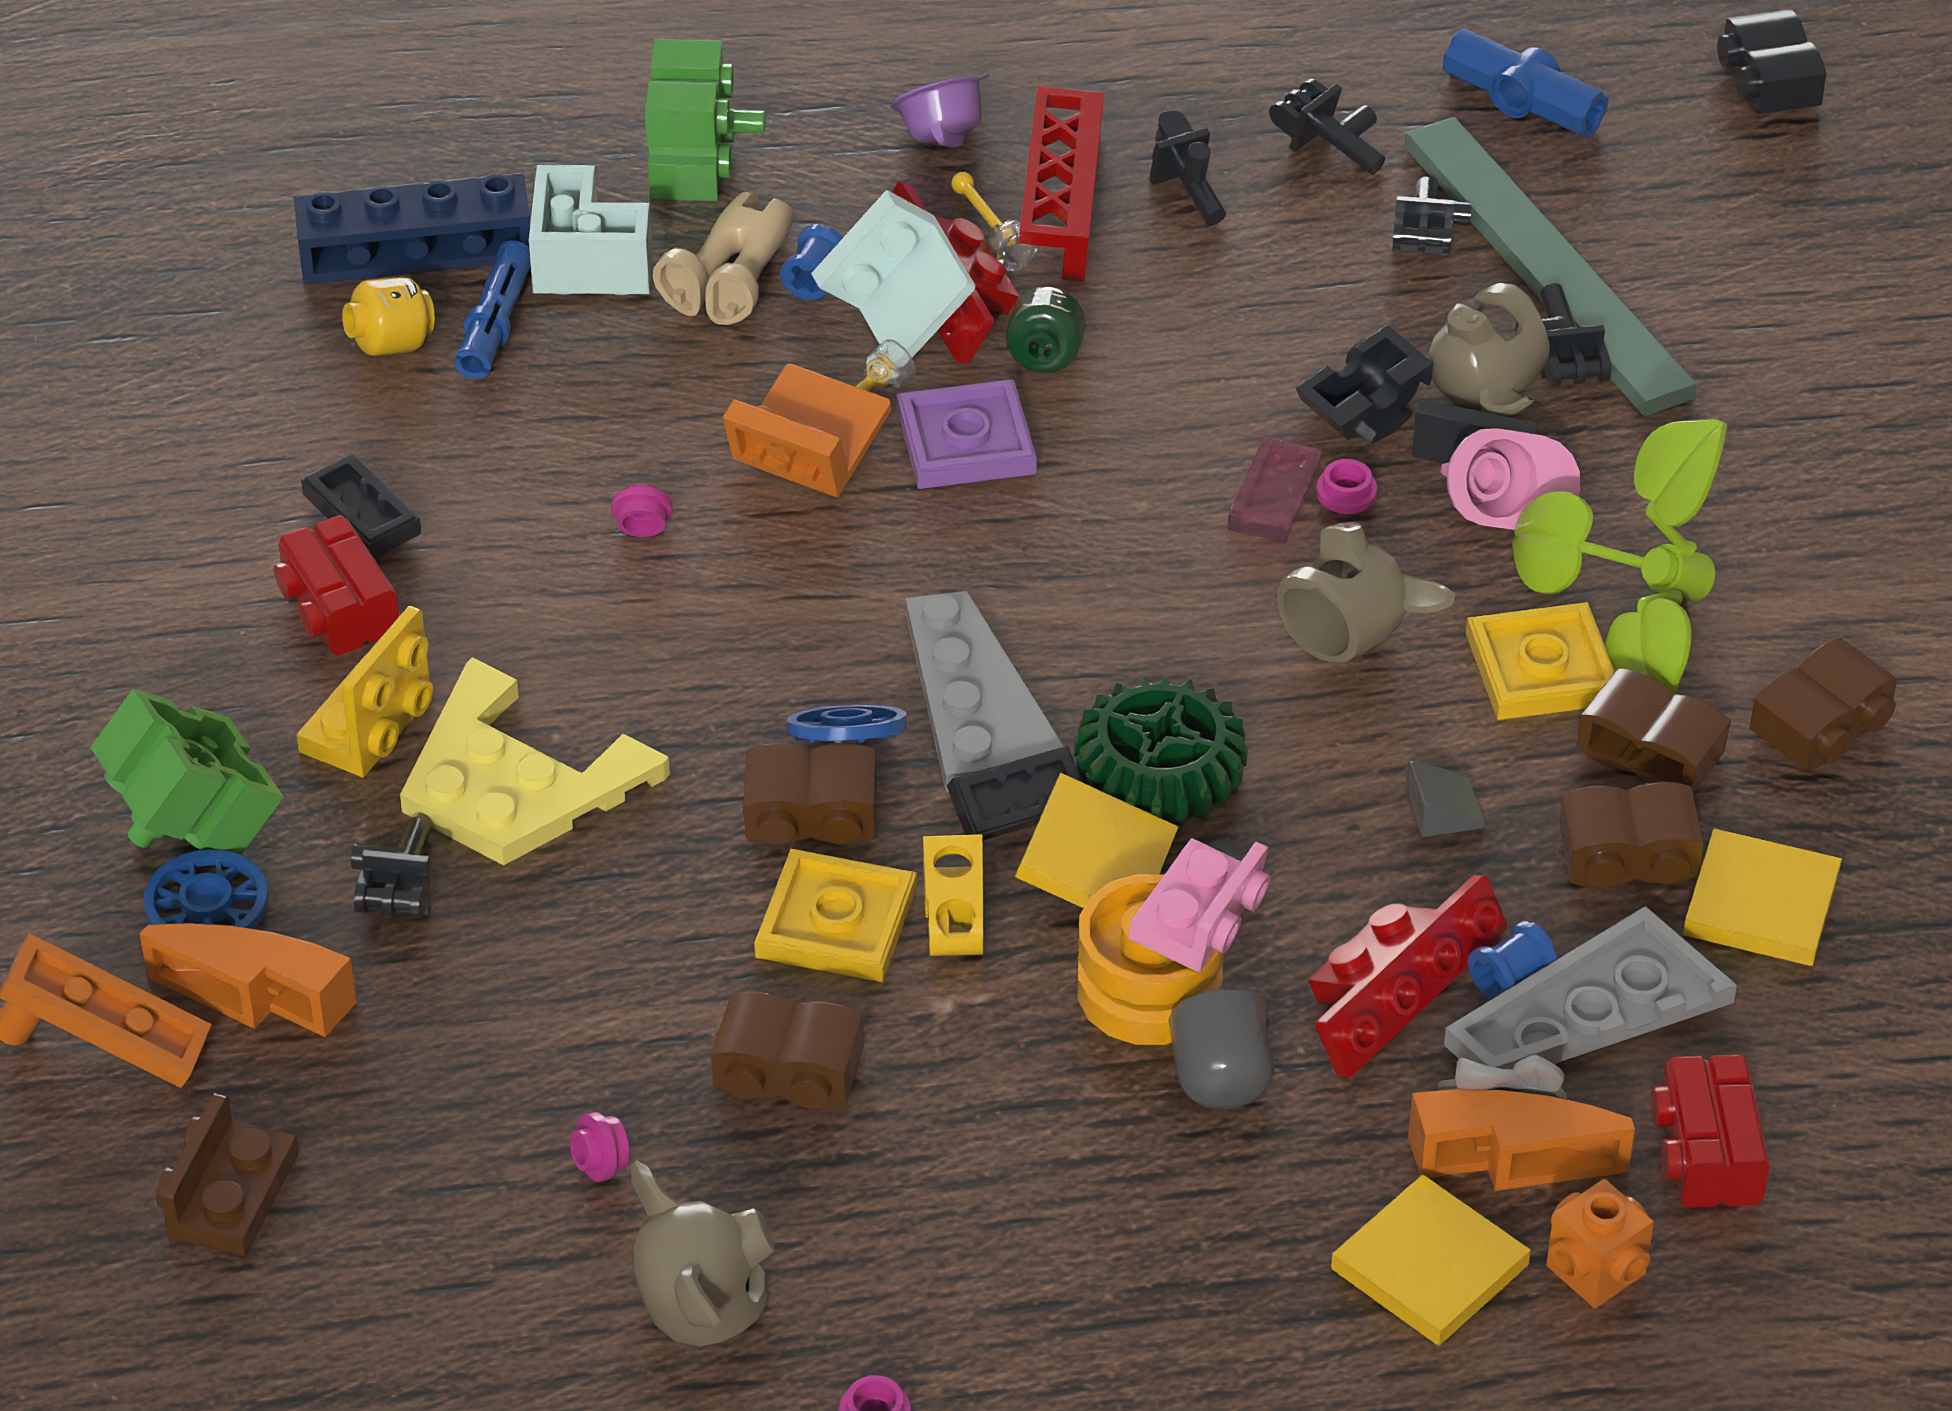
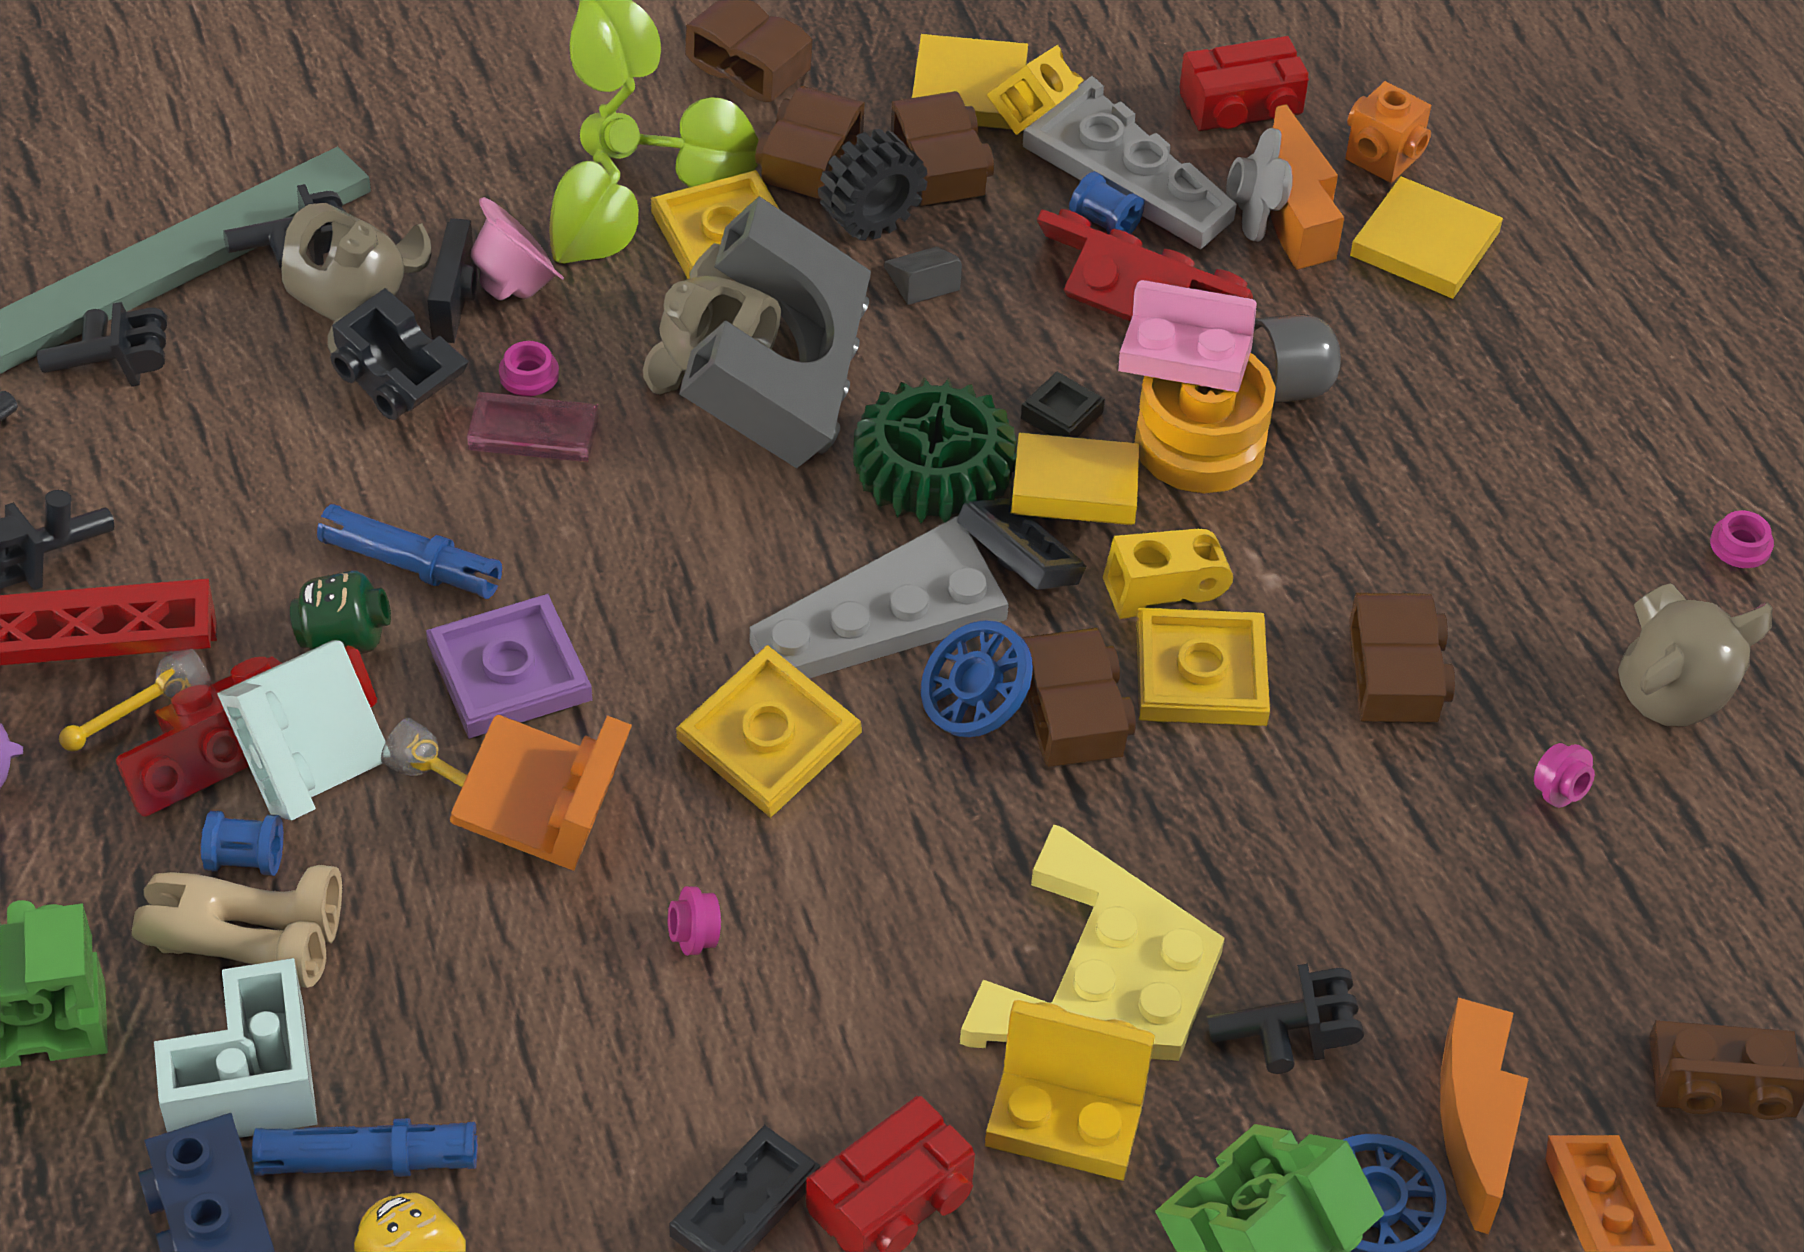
camera: 105 degrees left, 5 degrees up
(838, 586) = (769, 730): none -> yellow tile
(1107, 398) = (433, 558): none -> blue pin
(1387, 687) = (821, 297): none -> dark grey arch
(1548, 745) = (872, 184): none -> black tyre
(1712, 925) = (1034, 89): none -> yellow leg

